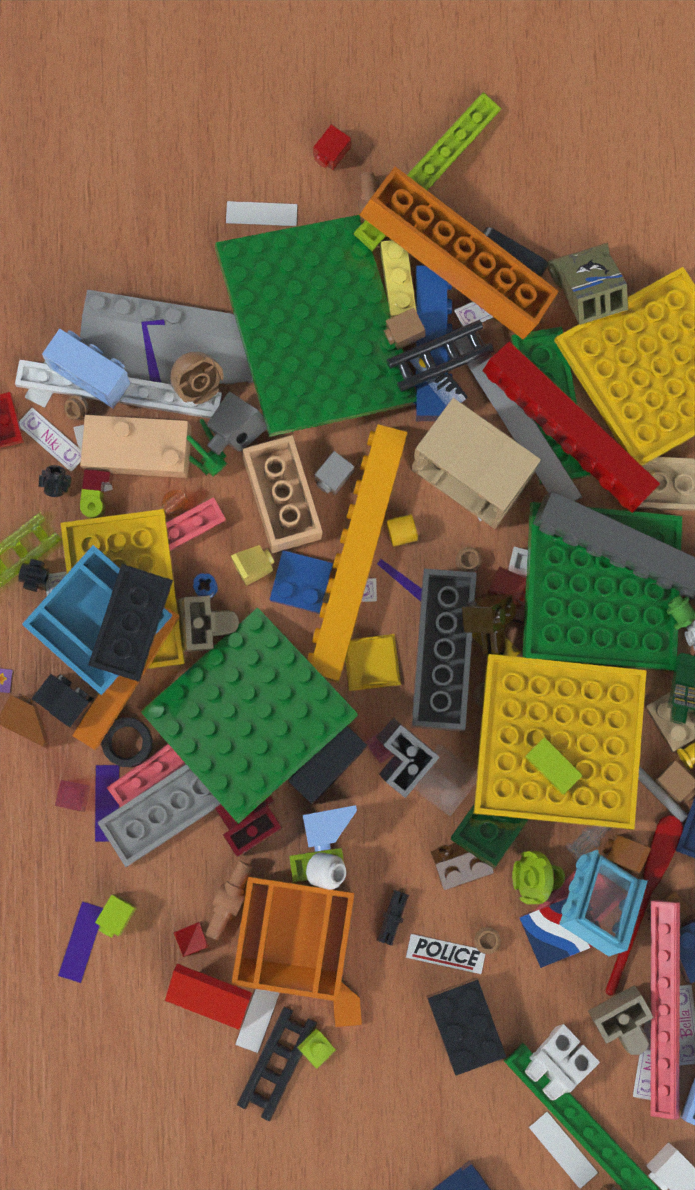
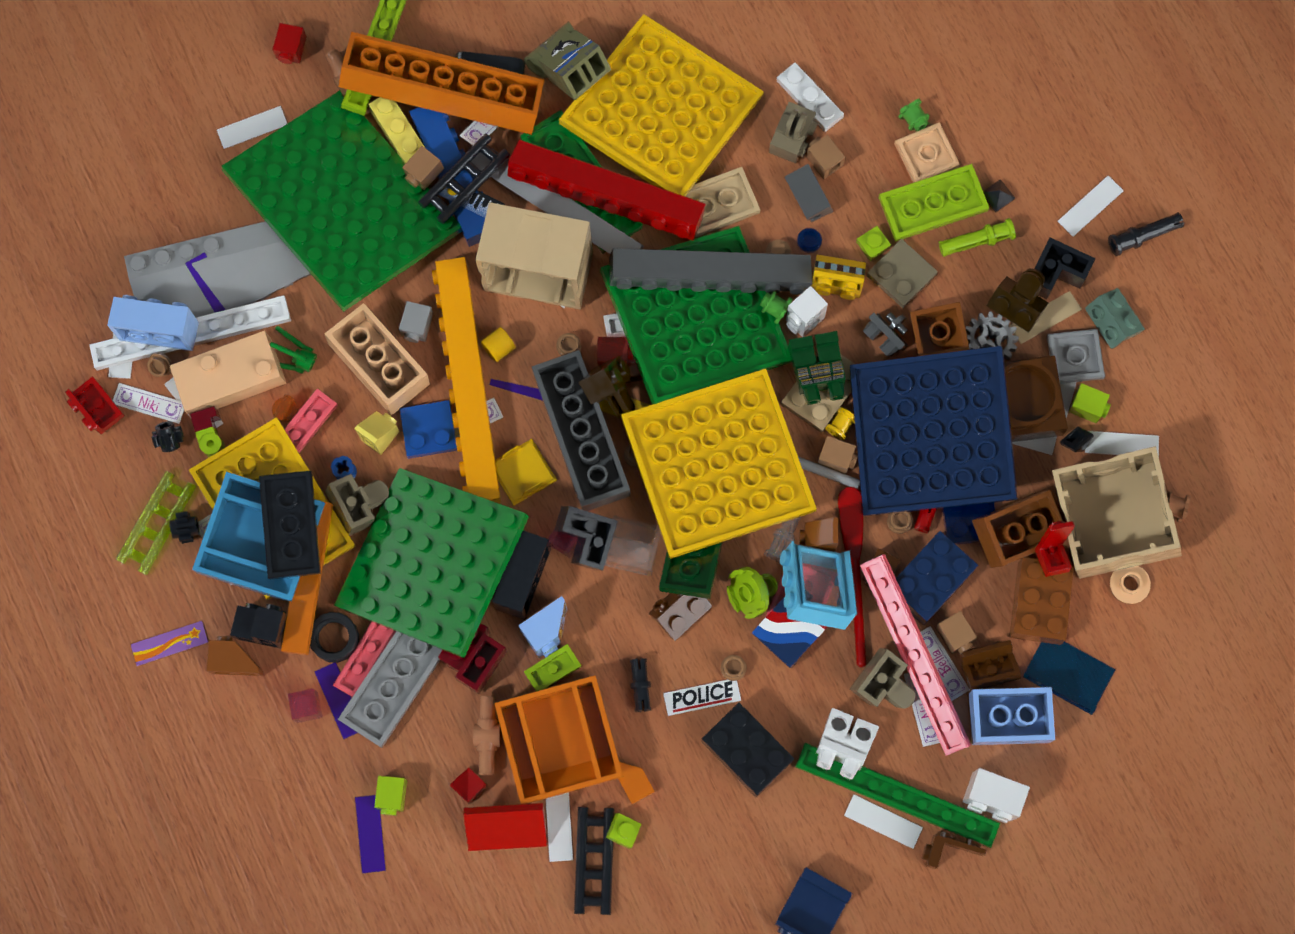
camera: 20 degrees left, 5 degrees down
(196, 377) = (255, 289): medium nougat cylinder -> none
(235, 424) = (308, 316): dark grey torso -> none
(326, 871) = (561, 667): white head -> none
(553, 766) = (721, 485): lime tile -> none

